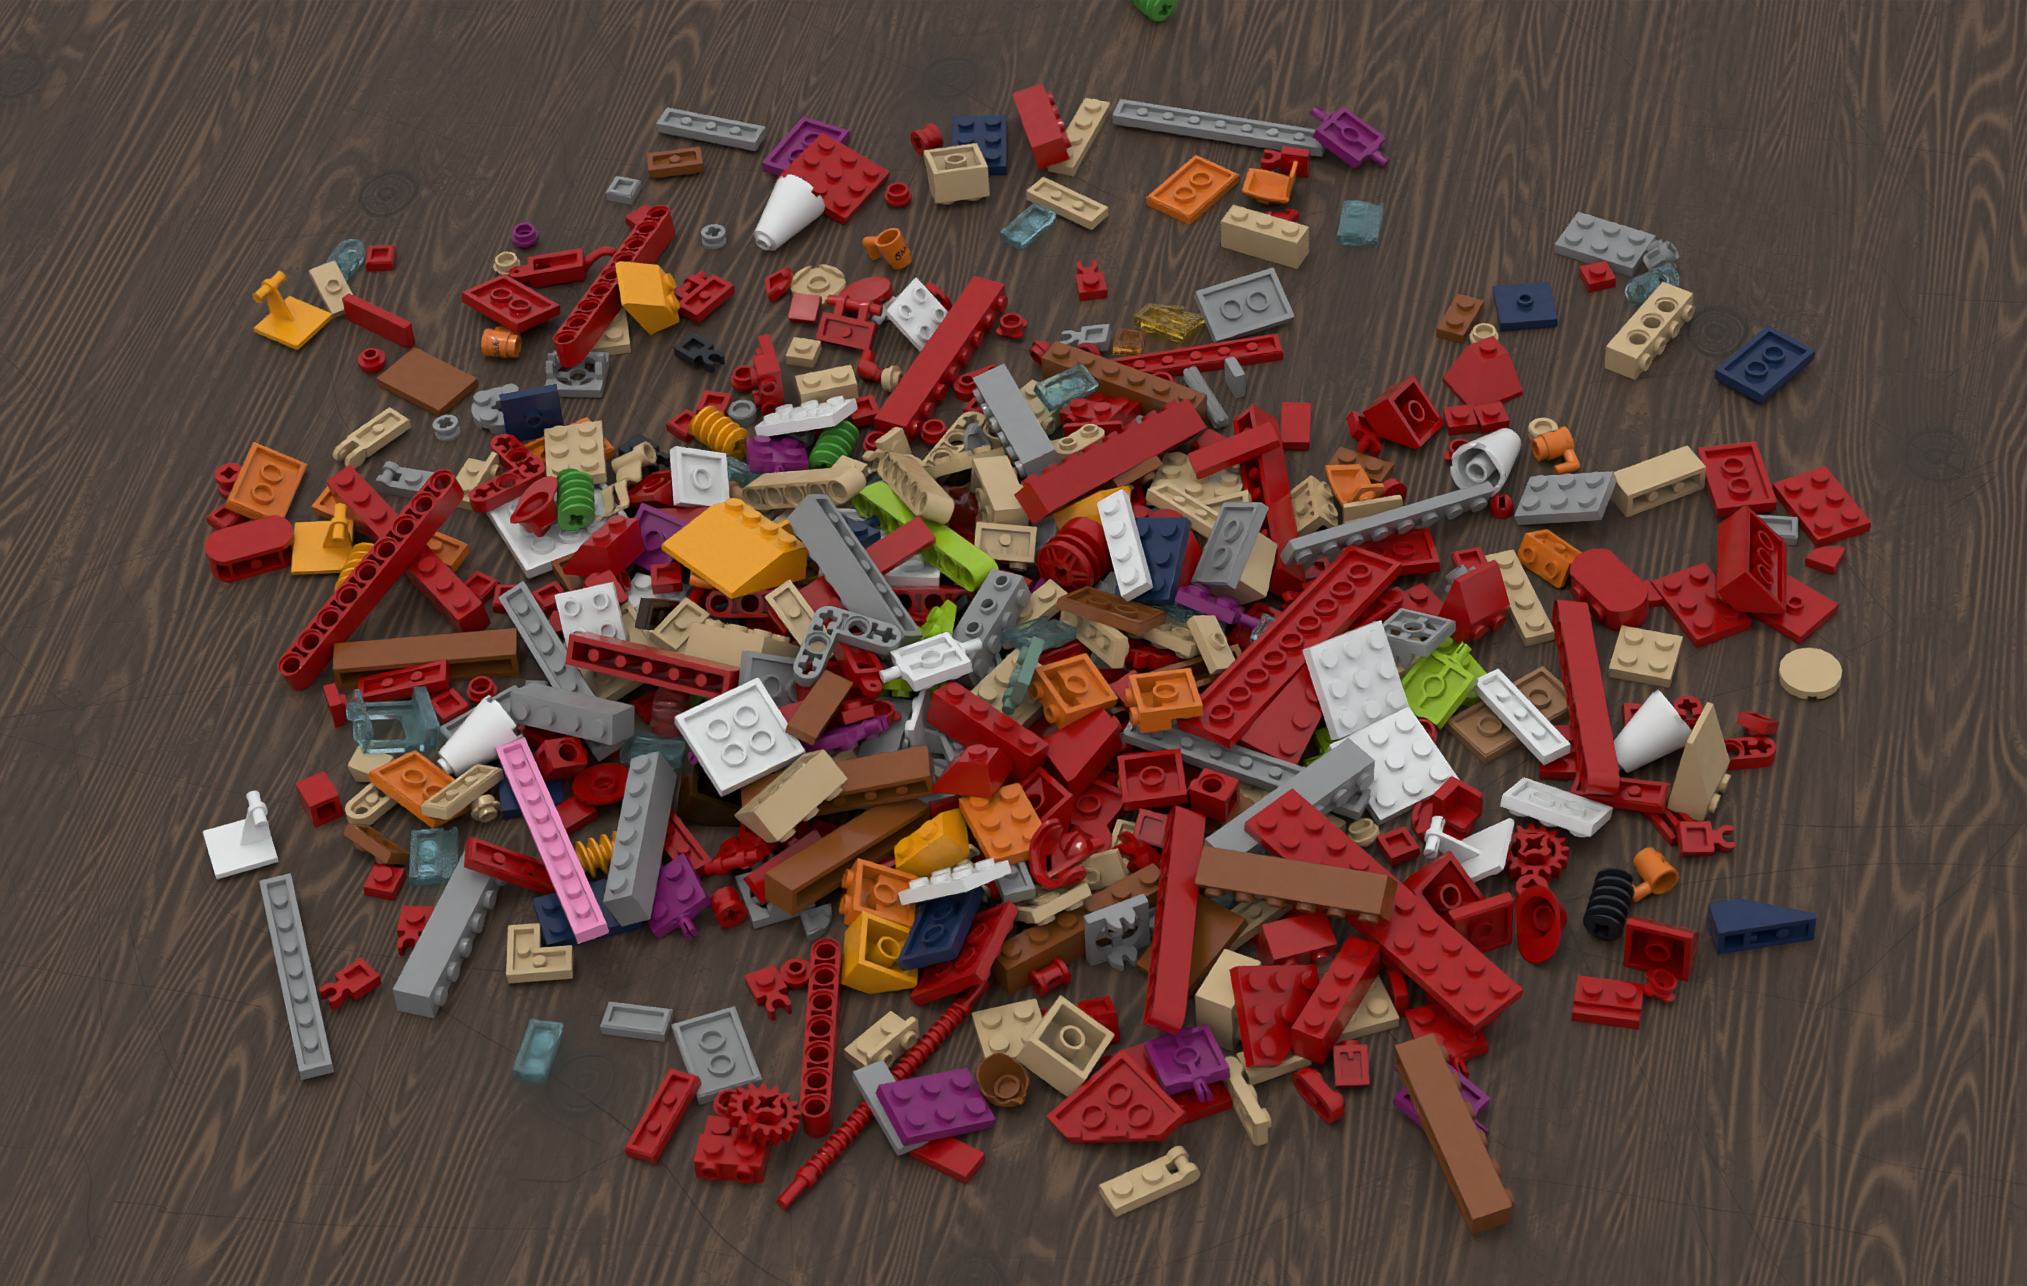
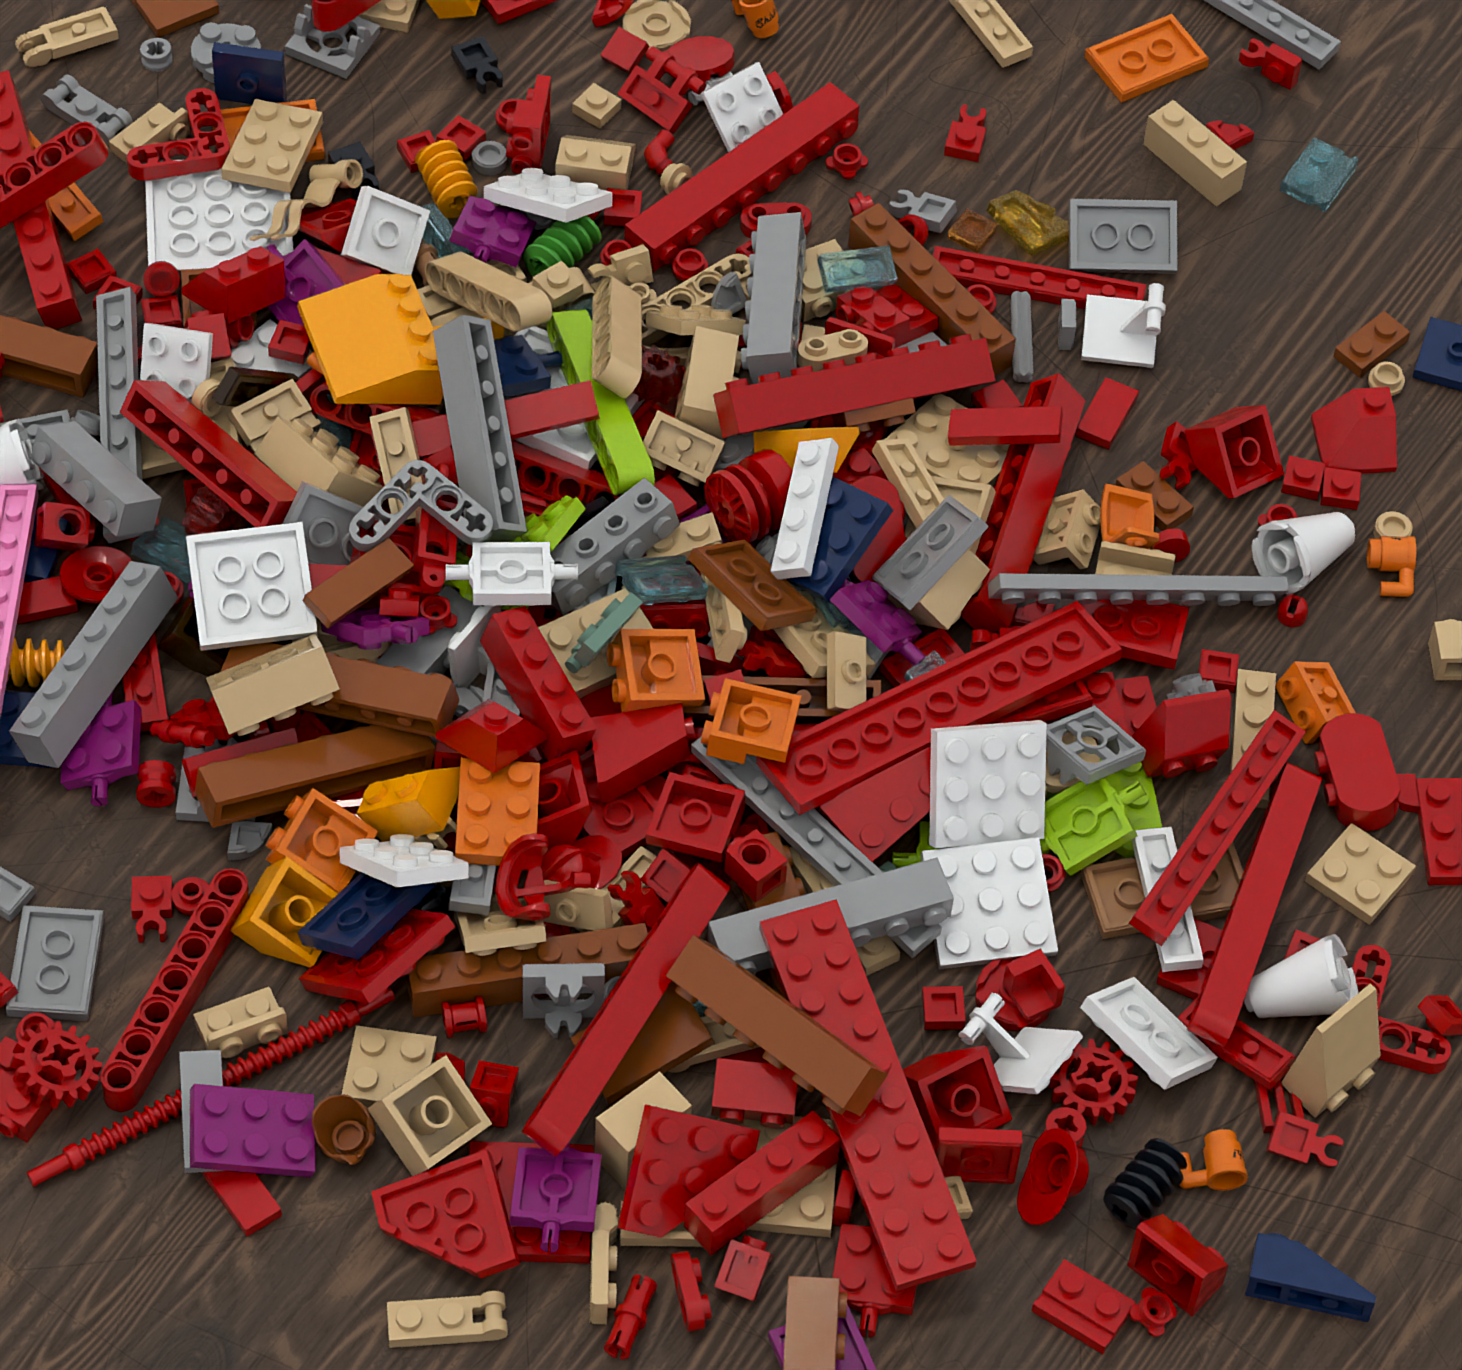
camera: 15 degrees right, 10 degrees up
(480, 688) = (25, 396): red plate -> none
(537, 507) = (192, 199): red piece -> none
(539, 572) = (161, 279): none -> red plate
(575, 499) = (238, 205): bright green piece -> none
(627, 630) = (203, 398): none -> tan tile
(1027, 226) = (930, 37): clear light blue plate -> none
(1269, 186) = (1235, 86): orange piece -> none
(1279, 366) = (1123, 328): none -> white plate
(1285, 1128) = (630, 1317): none -> red pin
(1349, 137) = (1359, 57): magenta plate -> none
(1363, 832) = (912, 974): tan plate -> none
(1533, 656) = (1217, 828): none -> red plate
(1565, 498) = (1368, 631): light grey plate -> none

